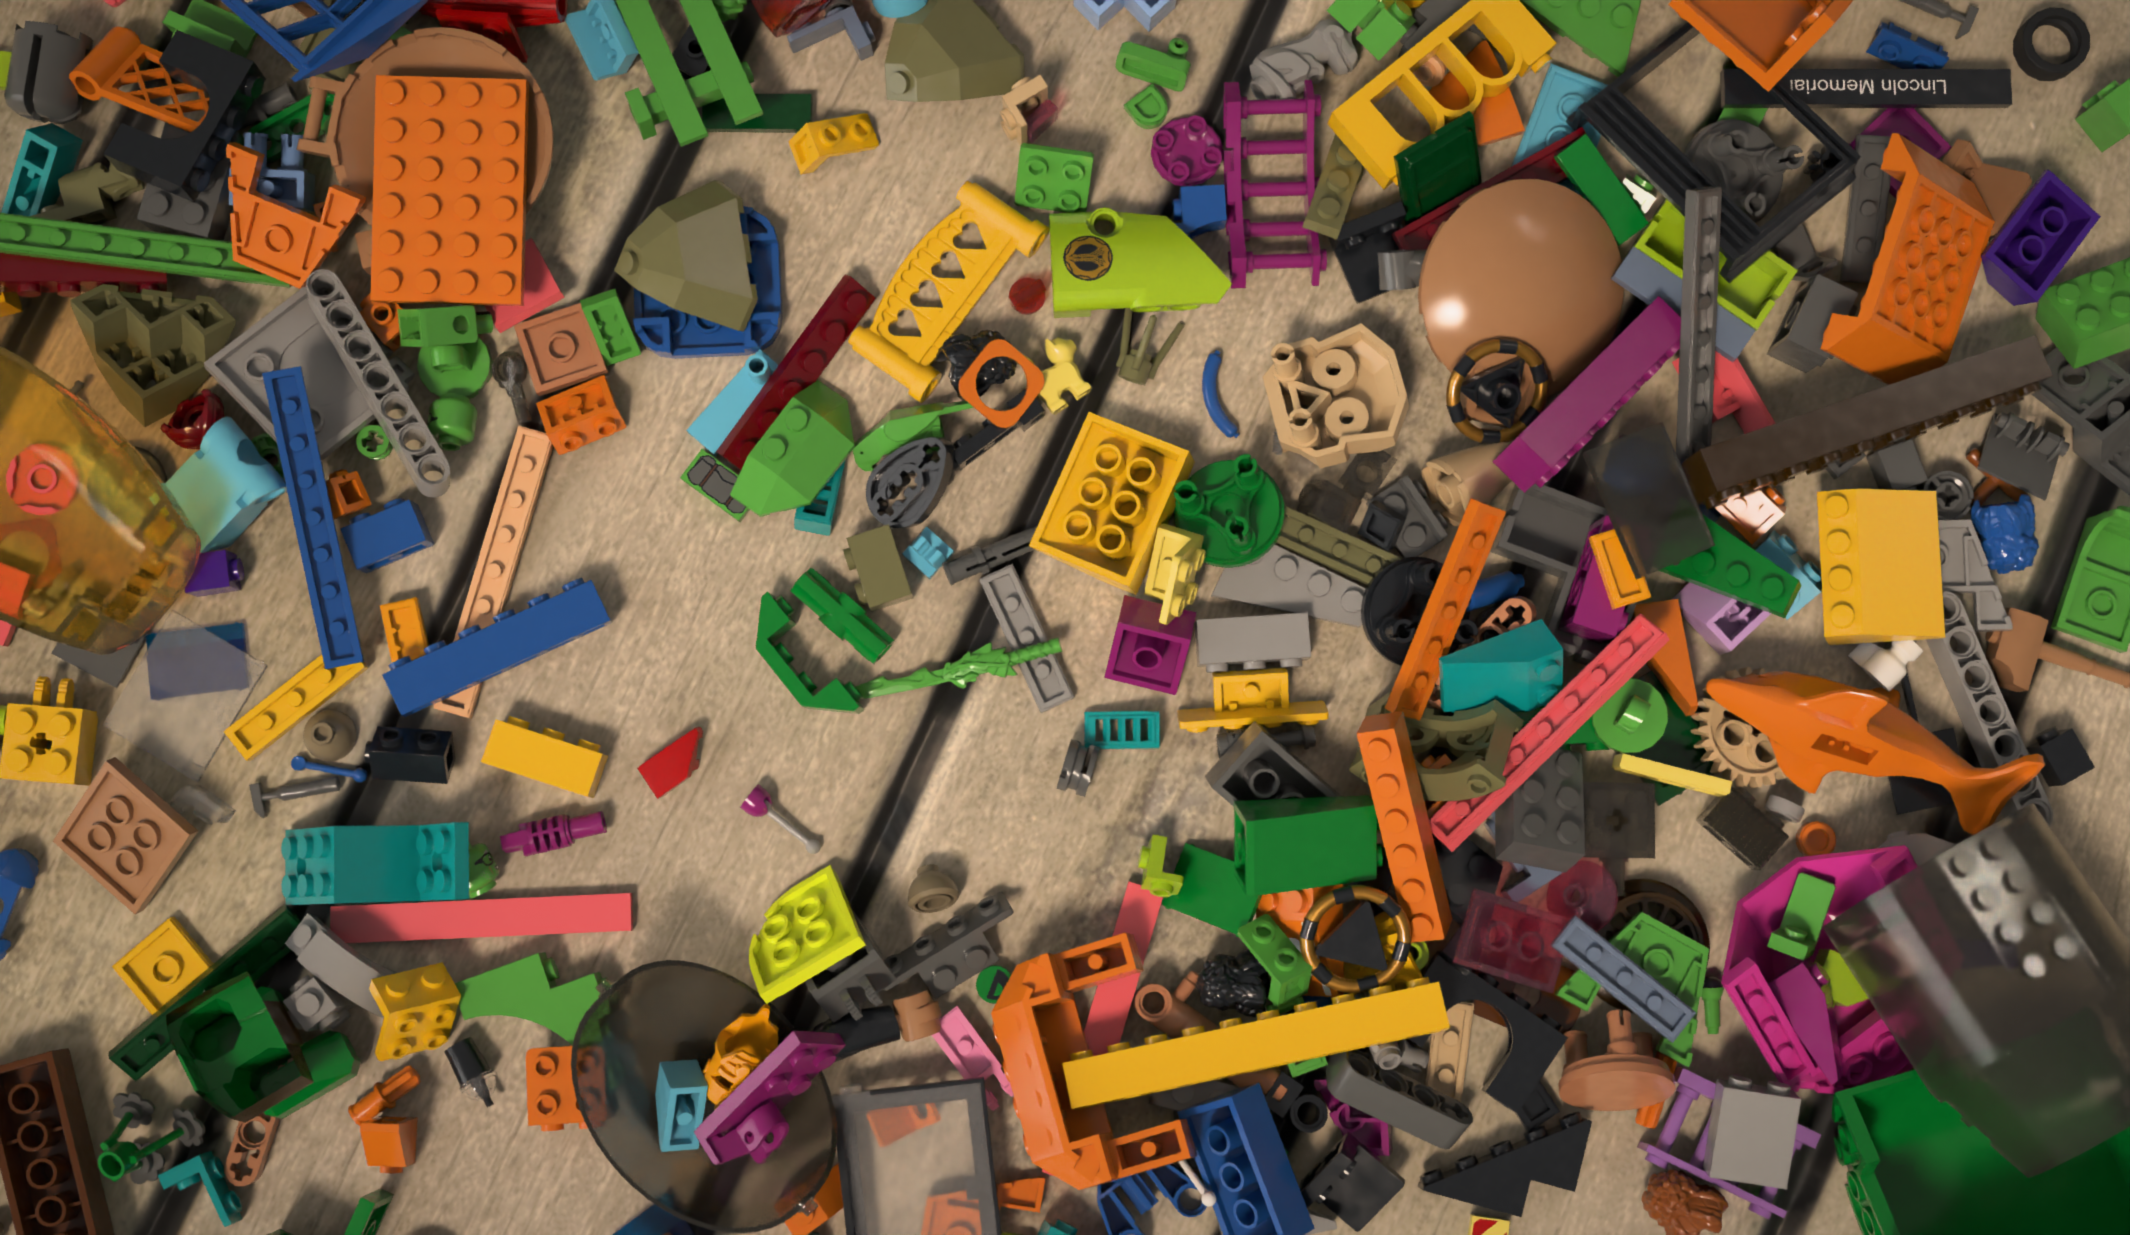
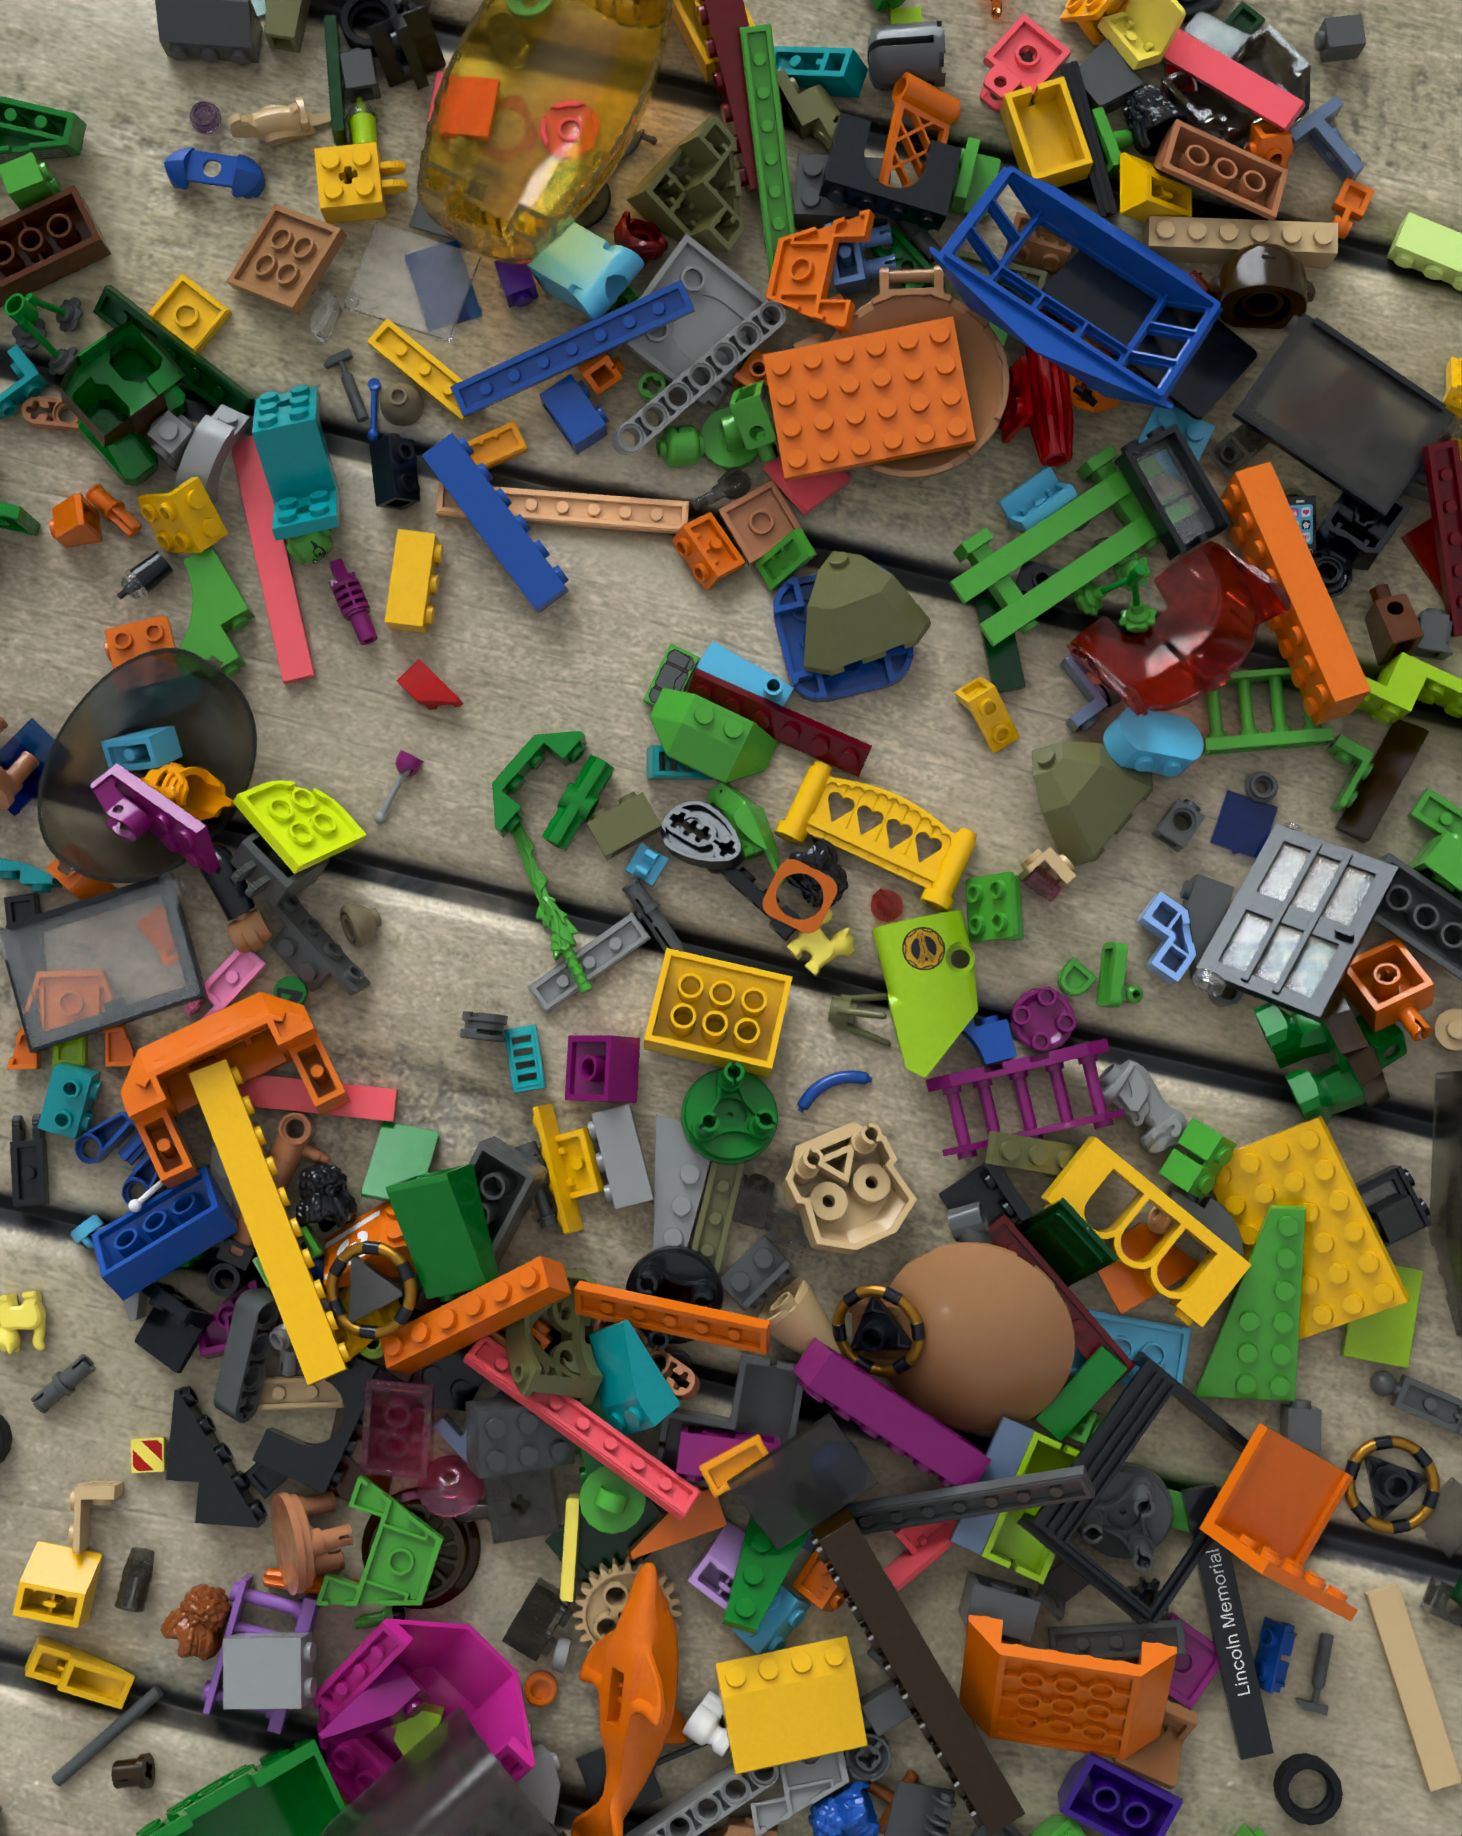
camera: 85 degrees right, 0 degrees up
(1151, 861) = (414, 1105): lime bracket -> none
(1173, 570) = (667, 1076): light yellow bracket -> none
(1279, 958) = (346, 1225): bright green bracket -> none
(1382, 525) = (744, 1251): black tile -> none
(1495, 589) = (706, 1361): blue cylinder -> none
(1623, 978) = (380, 1532): sand blue tile -> none
(1803, 917) = (463, 1686): bright green bracket -> none

